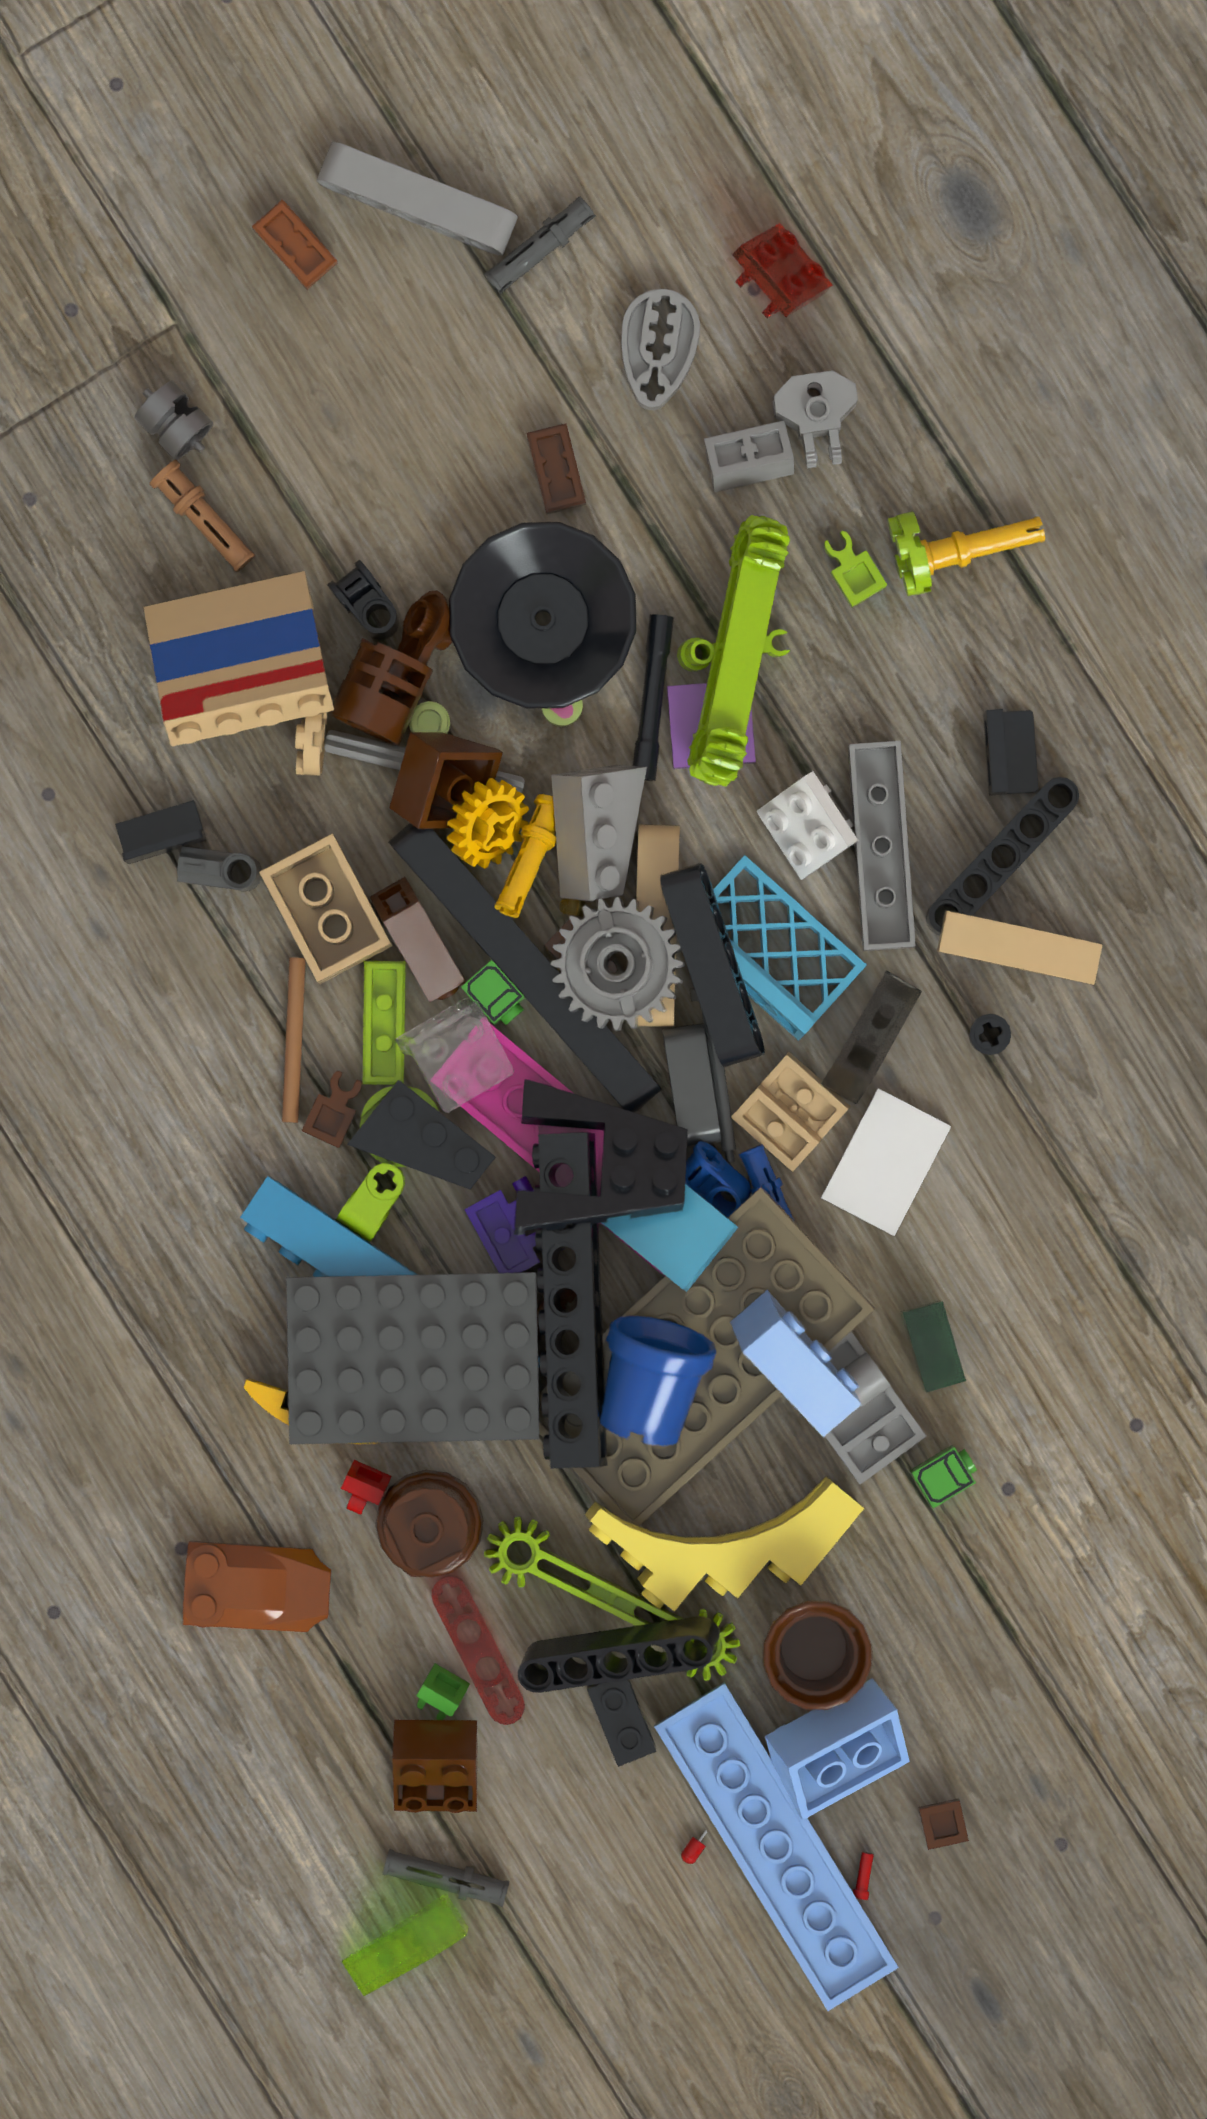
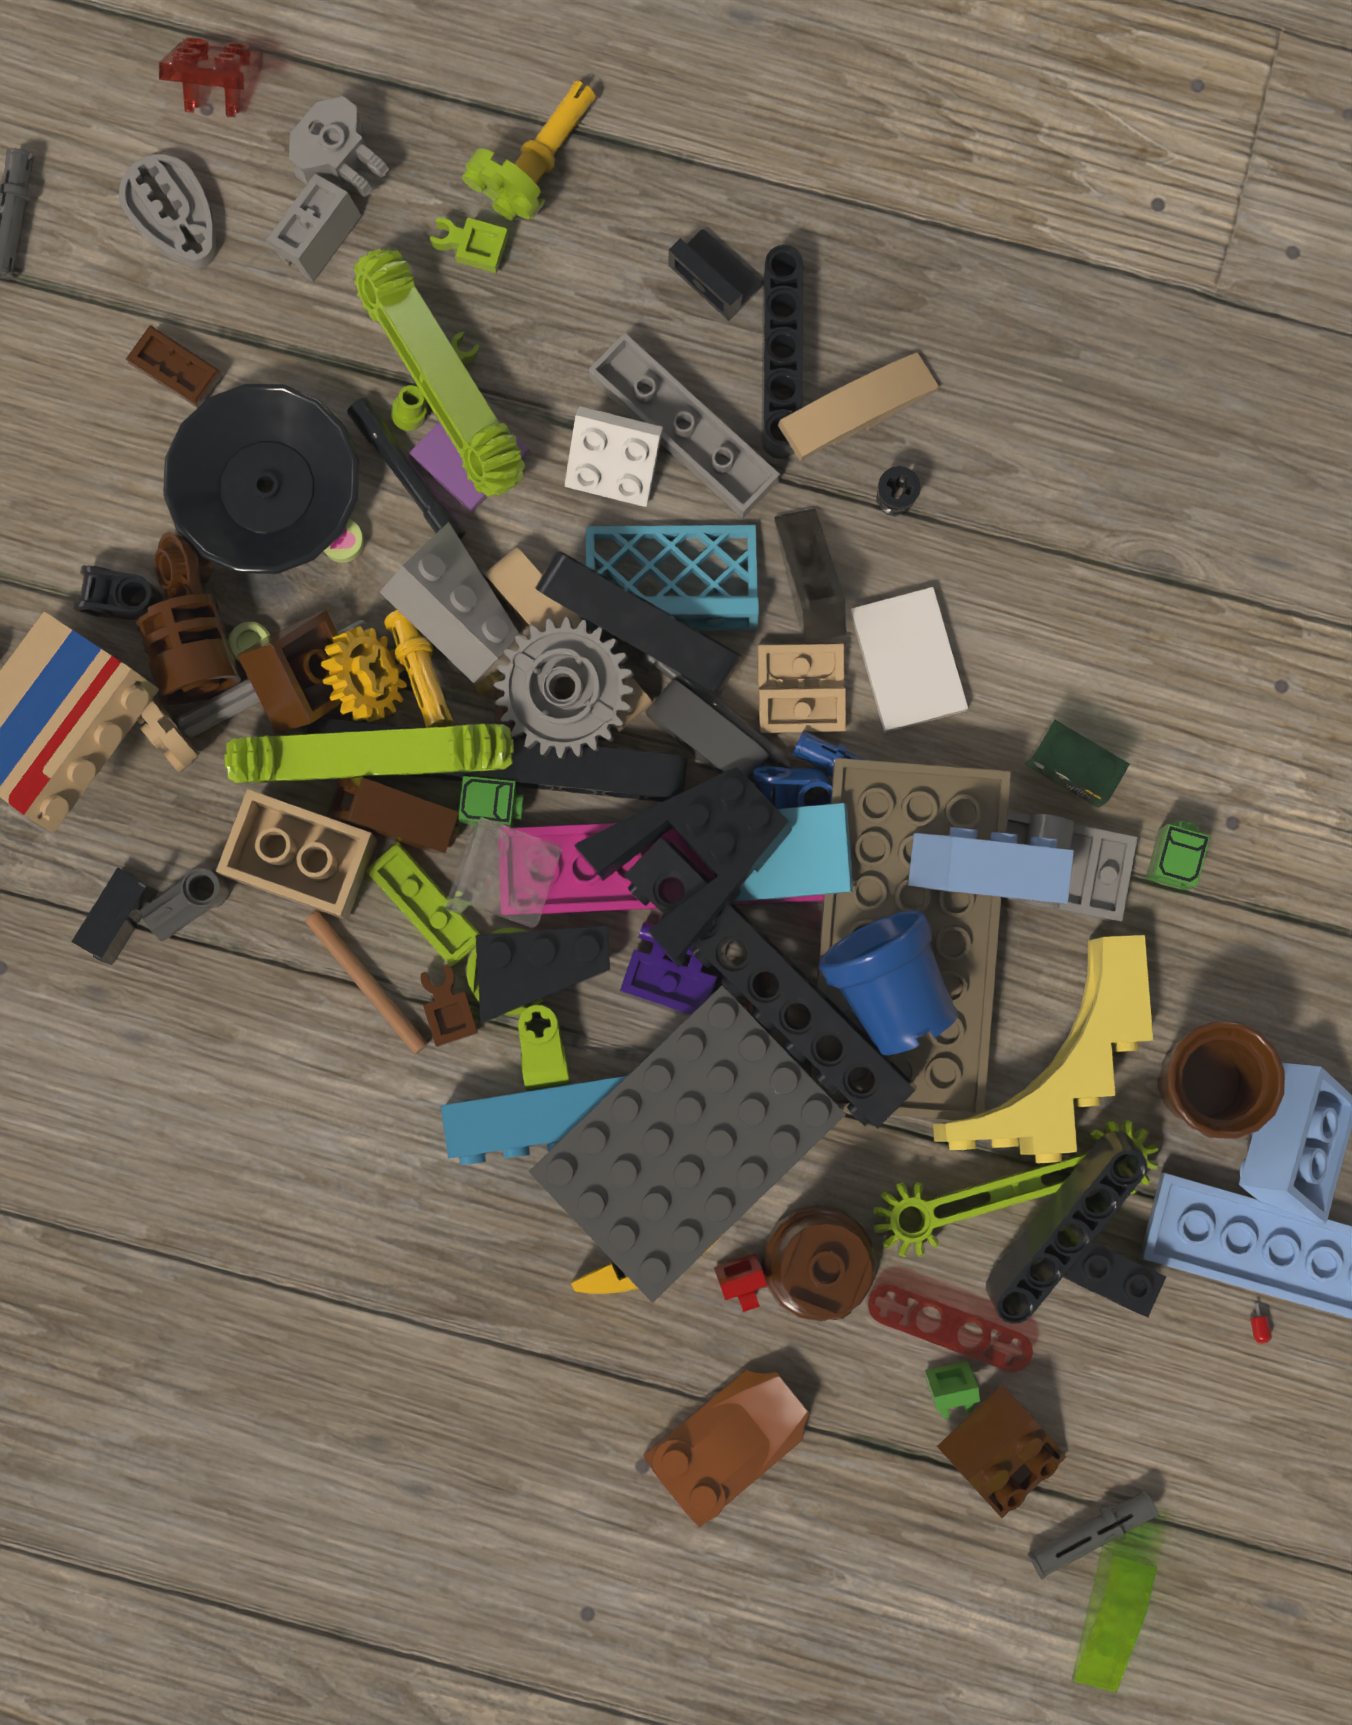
camera: 45 degrees left, 5 degrees down
(439, 886) = (369, 753): none -> lime arm

